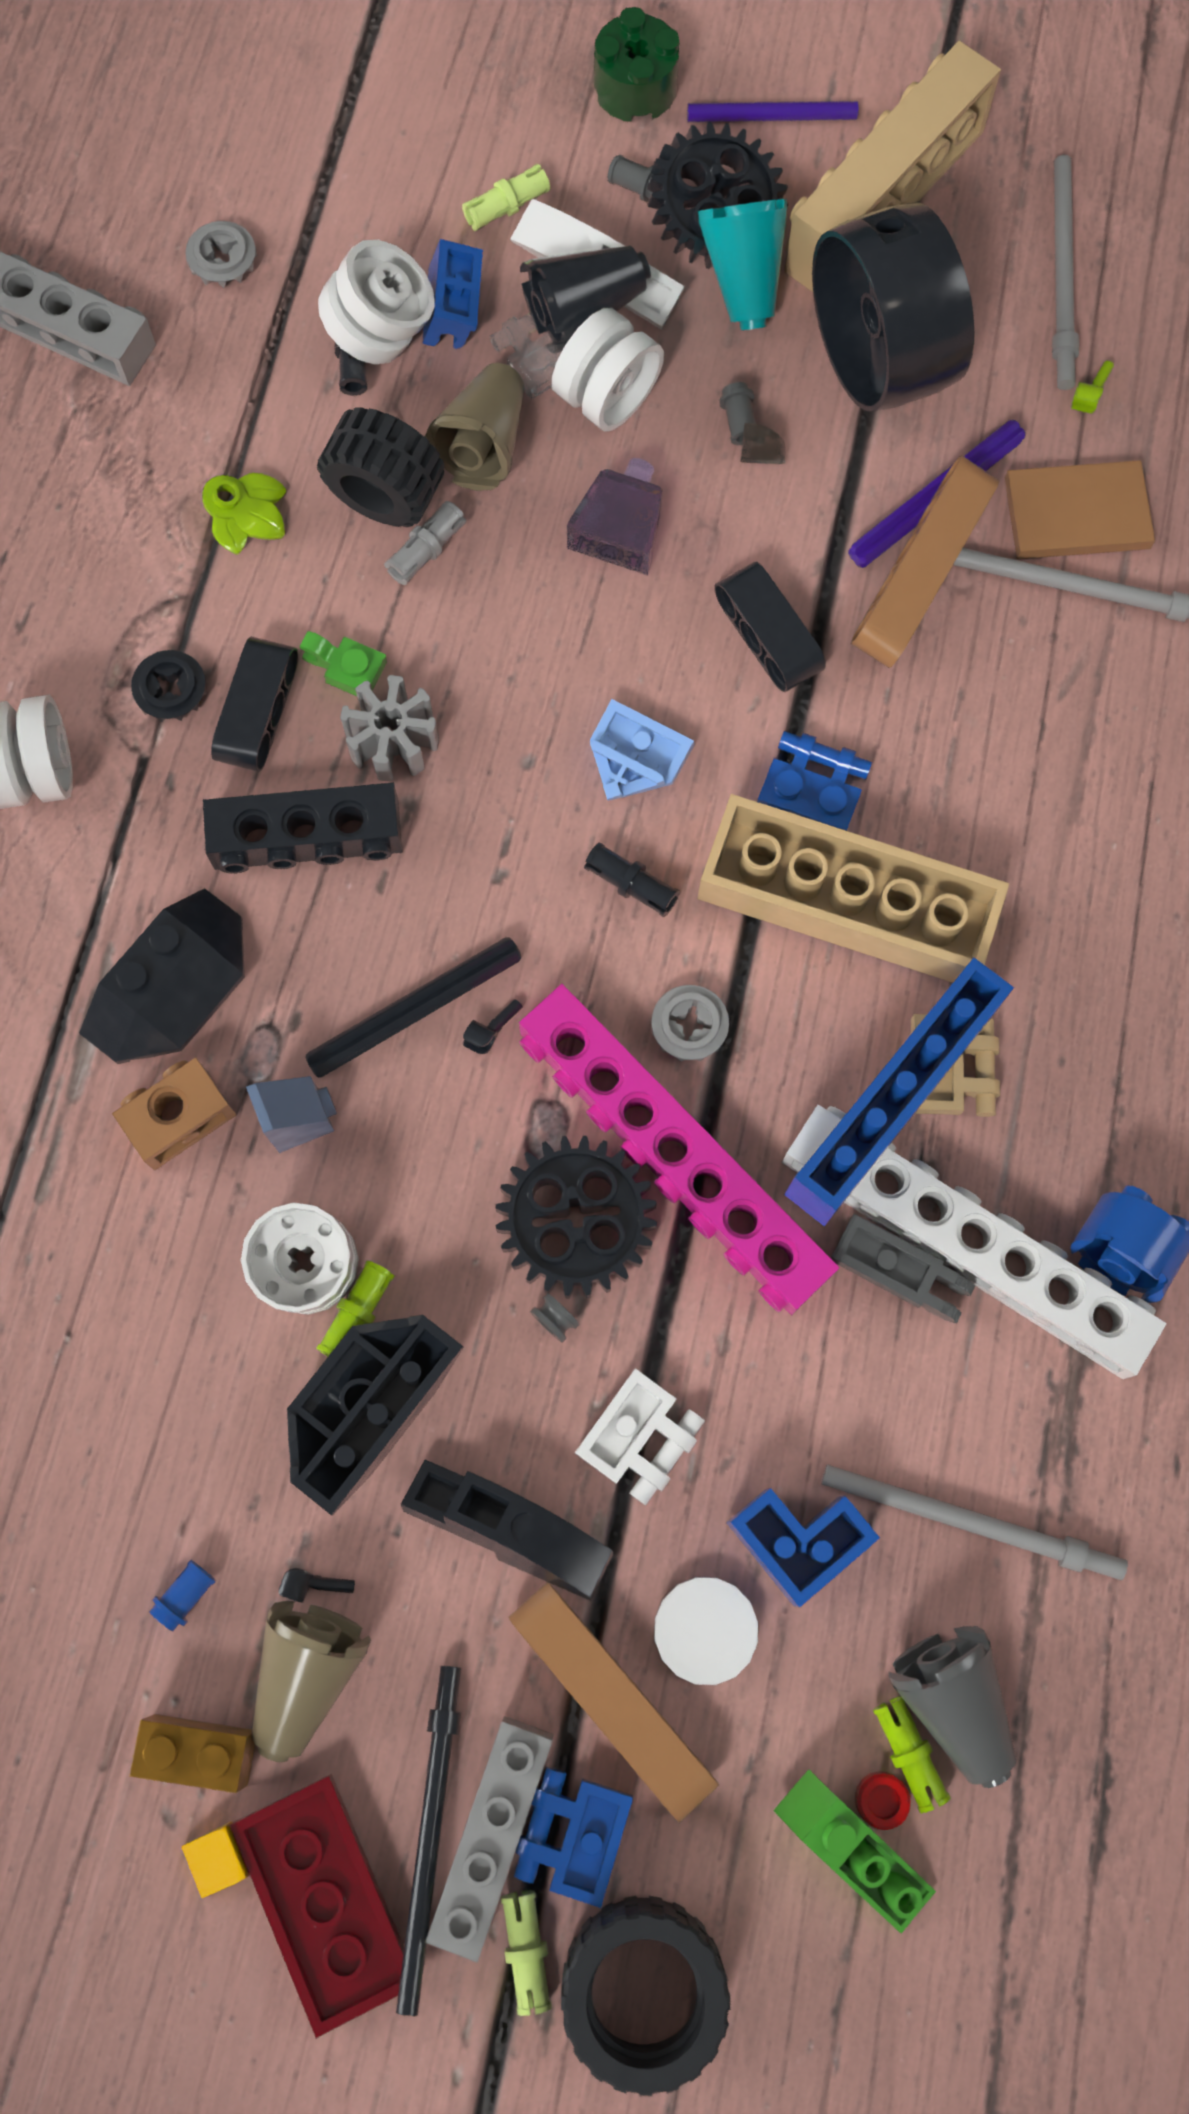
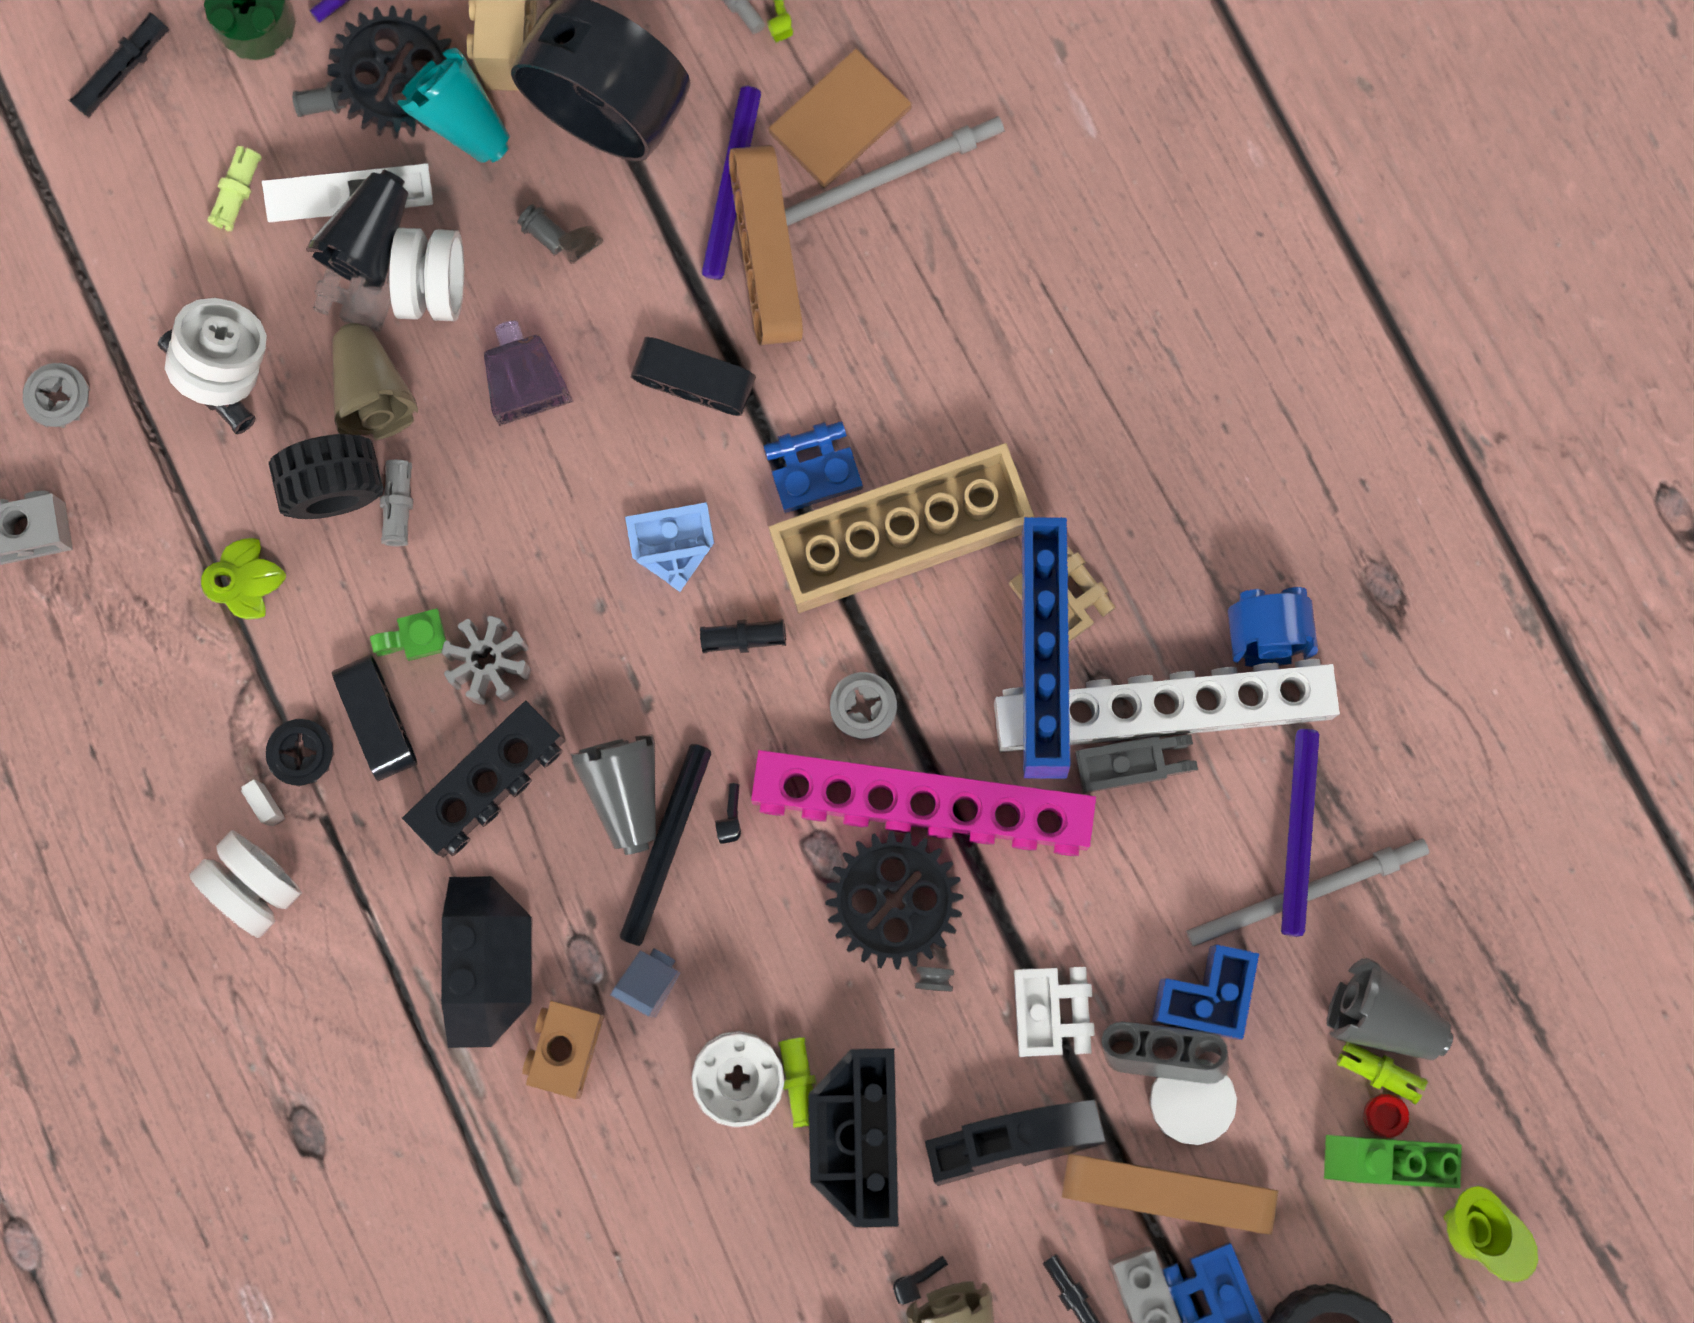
camera: 35 degrees left, 5 degrees up
(101, 701) = (262, 803): none -> white tile
(413, 925) = (622, 789): none -> dark grey cone
(456, 290) = (256, 287): blue hinge -> none
(495, 36) = (119, 64): none -> black pin
(721, 1585) = (1150, 1038): none -> dark grey beam
(898, 2007) = (1491, 1233): none -> lime piece
(1009, 1459) = (1300, 833): none -> dark purple axle

